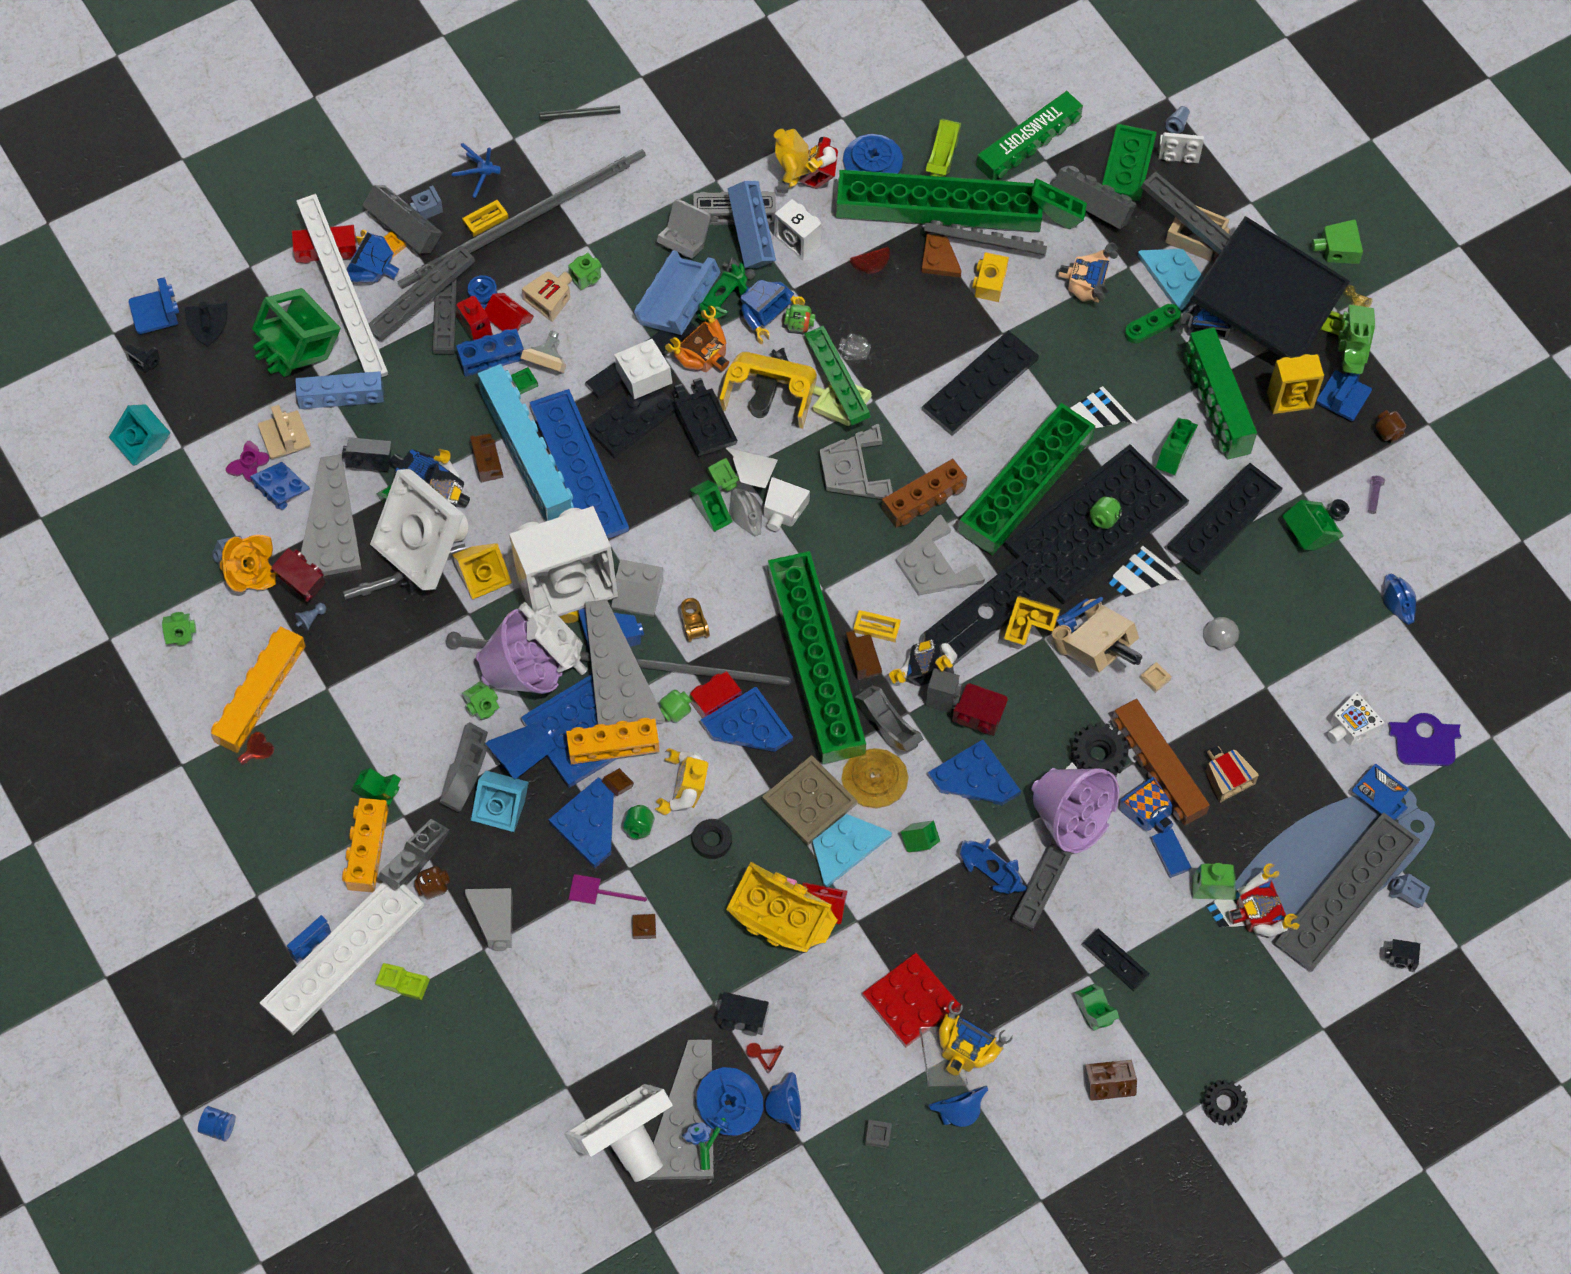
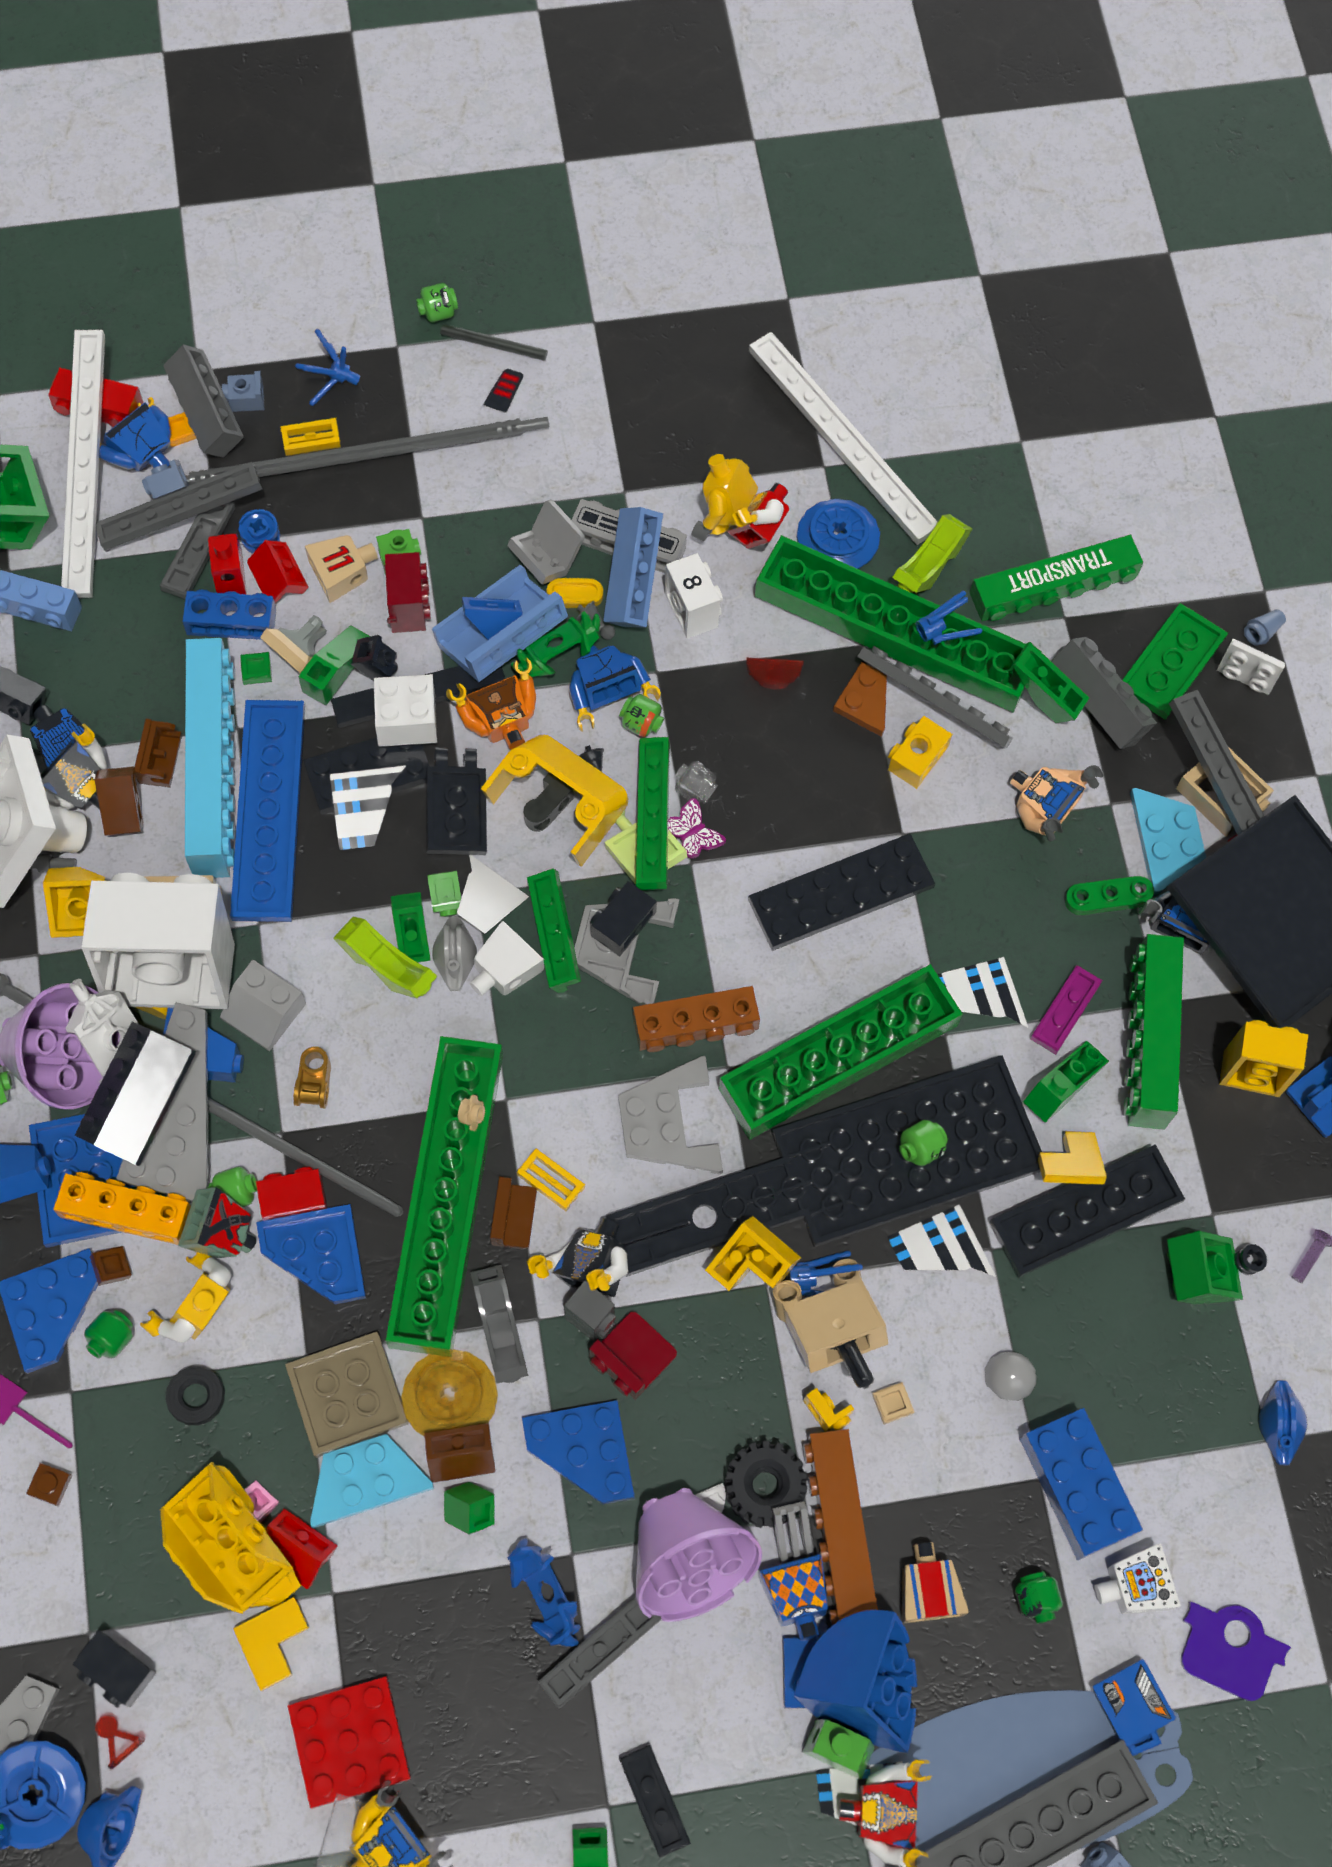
camera: 20 degrees right, 5 degrees up
(404, 279) = (165, 480): none -> sand blue brick
(480, 493) = (119, 800): none -> reddish brown panel
(530, 99) = (437, 302): none -> bright green head
(578, 359) = (330, 666): none -> green slope
(589, 664) = (135, 1093): none -> slope
(602, 142) = (504, 390): none -> black sticker
(603, 344) = (380, 660): none -> black brick
(605, 294) = (407, 592): none -> dark red brick
(640, 440) = (360, 804): none -> sticker
(671, 288) = (491, 614): none -> blue slope
(678, 727) = (216, 1225): none -> torso
(714, 533) = (386, 961): none -> lime arch
(721, 254) = (577, 591): none -> yellow tile
(806, 472) = (554, 930): none -> green hinge
(812, 596) = (471, 1112): none -> tan plate
(827, 963) = (262, 1637): none -> yellow tile
(847, 94) = (843, 437): none -> white plate
(850, 446) = (623, 918): none -> black brick
(866, 379) = (692, 830): none -> magenta animal
(899, 806) = (459, 1453): none -> reddish brown panel
(967, 190) = (932, 625): none -> blue plant
(1115, 696) = (822, 1410): none -> yellow bracket
(1137, 768) = (796, 1554): none -> light grey tile
(1157, 403) = (1066, 1009): none -> magenta tile
(1206, 490) = (1078, 1165): none -> yellow tile
(1212, 834) = (863, 1679): none -> blue brick
(1293, 678) = (1080, 1484): none -> blue brick
(1296, 752) = (1039, 1597): none -> green head

